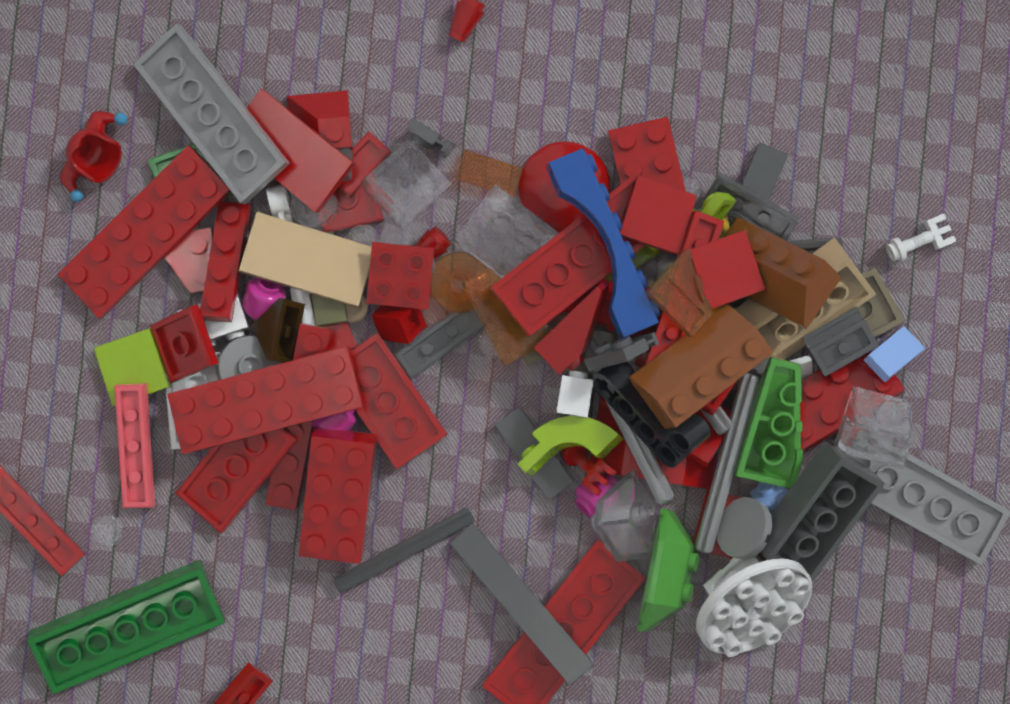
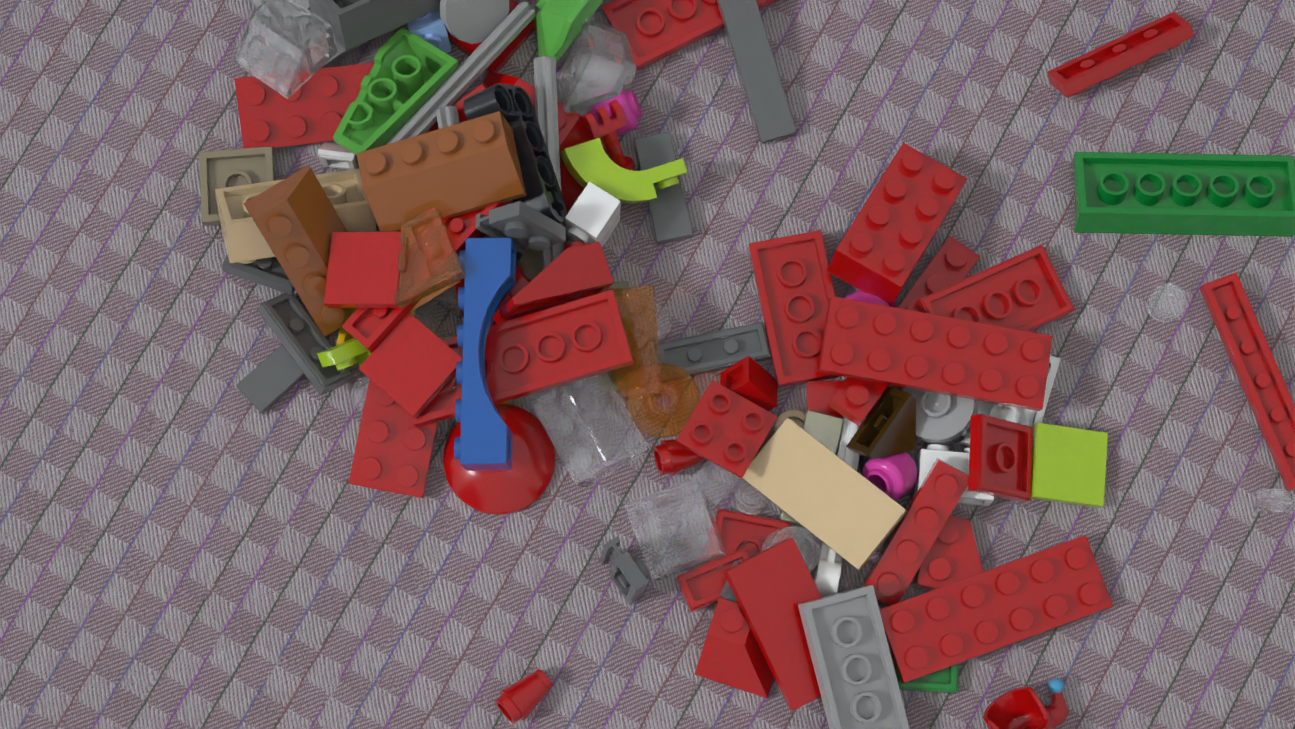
camera: 155 degrees left, 10 degrees down
(134, 445) = (1099, 378): coral tile -> none
(403, 550) = (846, 146): dark grey axle -> none
(487, 172) = (576, 509): clear orange tile -> none
(840, 341) = (276, 154): dark grey plate -> none
(894, 354) = (227, 120): light blue tile -> none
(898, 249) = (168, 232): white hinge -> none

